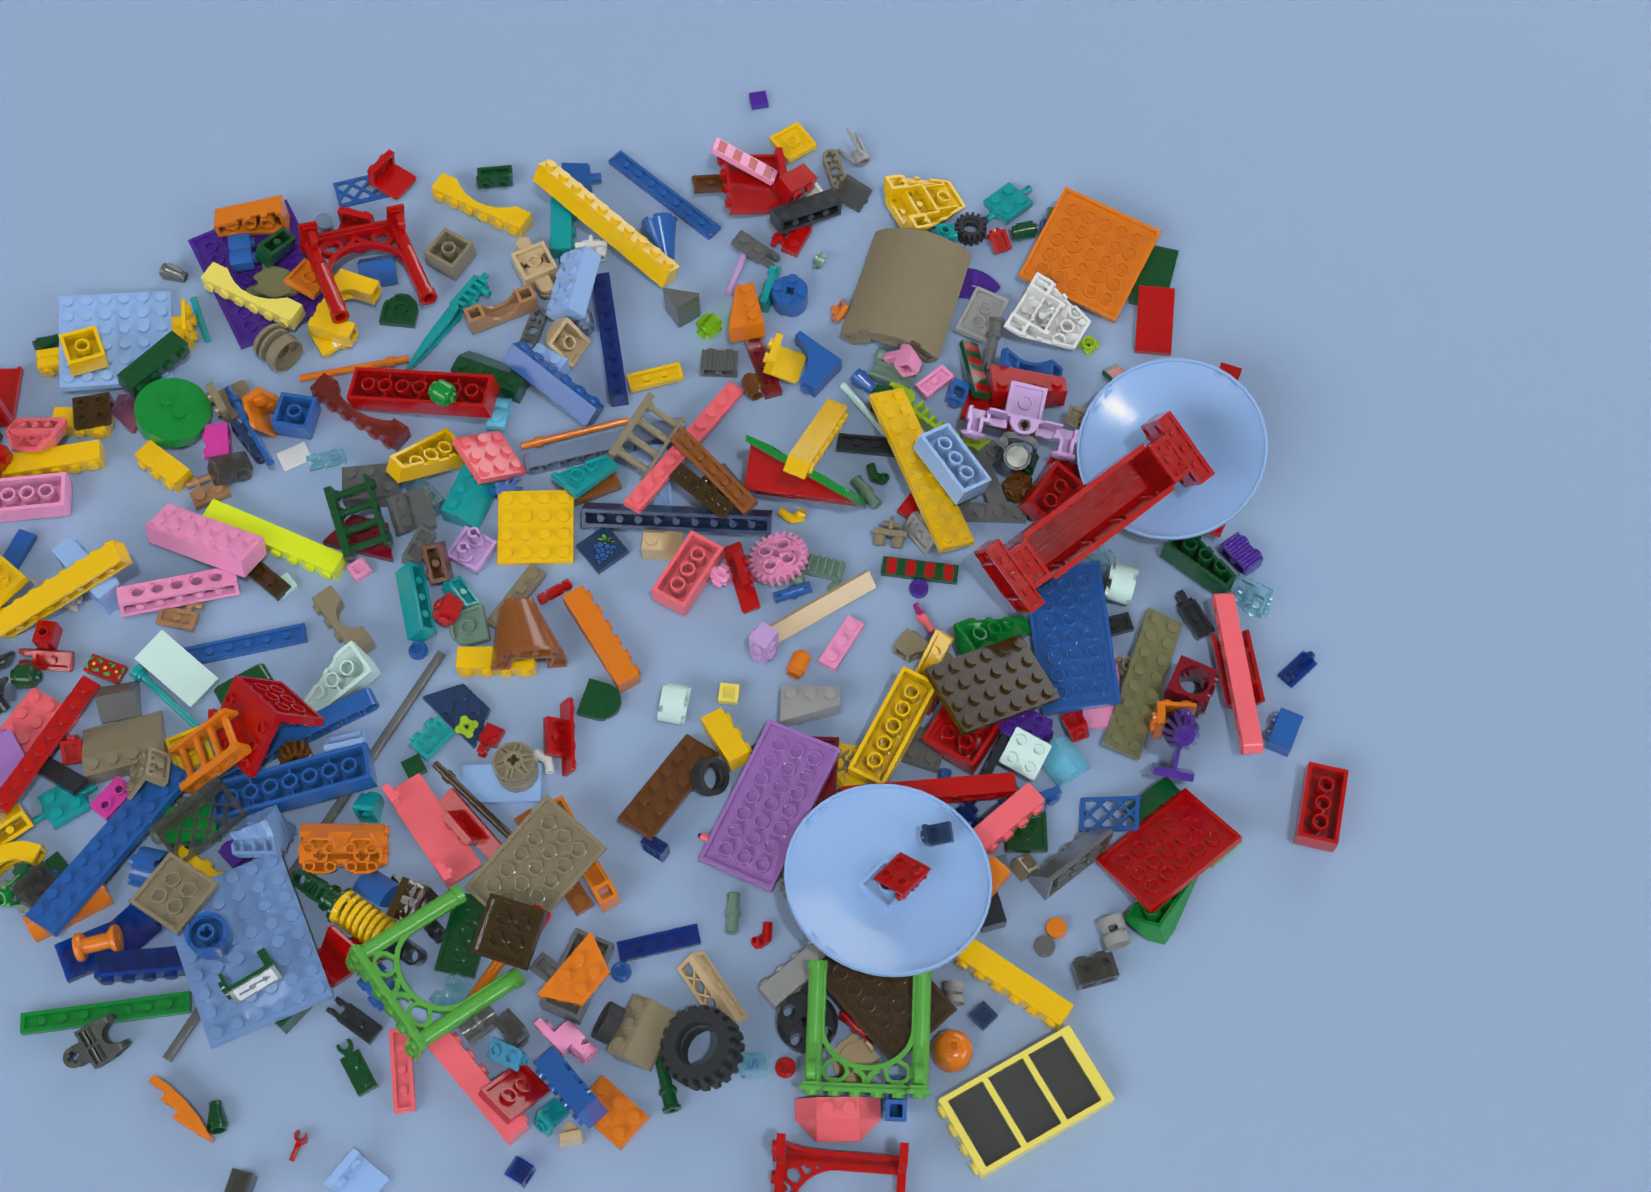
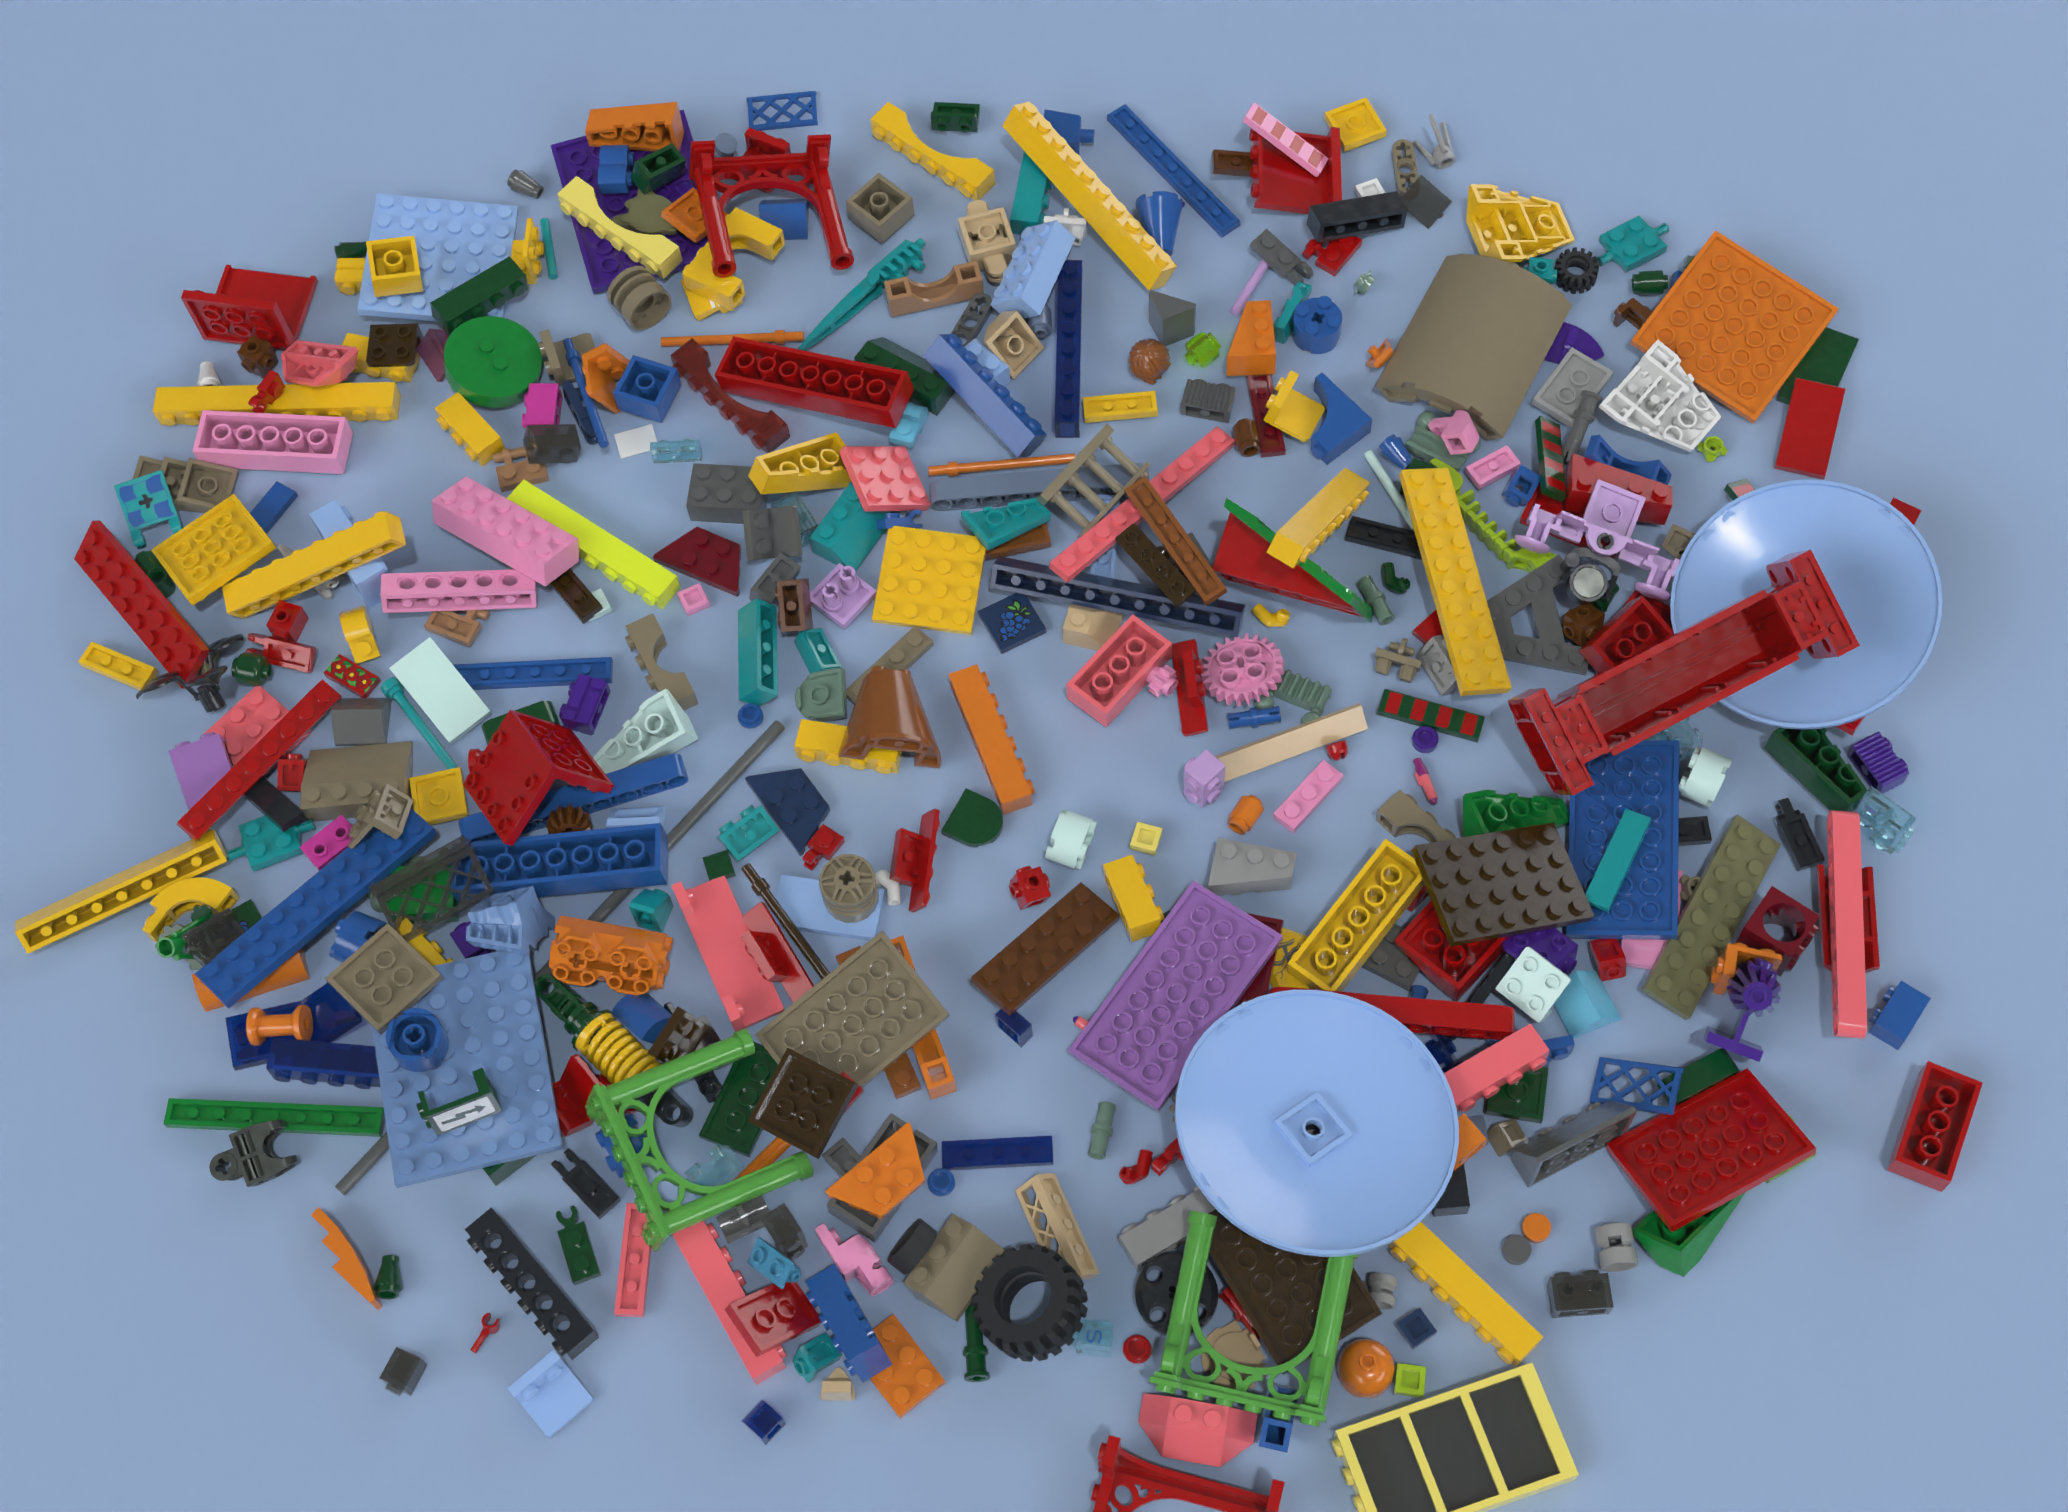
camera: 15 degrees right, 0 degrees up
(106, 635) = (359, 634): none -> yellow brick
(222, 760) = (476, 815): orange fence -> none
(289, 1065) = (491, 1227): none -> black brick
(290, 661) = (585, 704): none -> dark purple brick
(339, 514) = (679, 523): dark green fence -> none
(389, 177) = (819, 98): red bracket -> none
(399, 311) = (803, 274): dark green tile -> none
(442, 393) = (837, 385): green head -> none
(447, 609) = (796, 668): red brick -> none
(461, 727) = (795, 833): lime plate -> none
(554, 591) = (940, 667): red axle -> none
(649, 743) = (1030, 887): none -> red brick
(670, 339) = (1149, 360): none -> dark orange hair
(698, 780) = (1118, 947): black tyre -> none
(758, 100) = (1318, 62): dark purple tile -> none
(787, 920) = (1170, 1156): none -> red plate
(796, 183) = (1350, 177): red brick -> none
(857, 606) = (1337, 750): none -> red hinge
(902, 875) = (1337, 1119): red hinge -> none
(935, 650) = (1434, 825): yellow tile -> none
(937, 834) = (1393, 1072): dark blue bracket -> none
(952, 463) = (1498, 578): light blue brick -> none
(984, 1053) = (1410, 1380): none -> lime plate
(999, 240) = (1612, 291): red bracket -> none
(1016, 254) = (1633, 312): none -> reddish brown bracket
(1070, 654) = (1617, 860): none -> teal tile
(1298, 668) = (1933, 931): clear blue hinge -> none

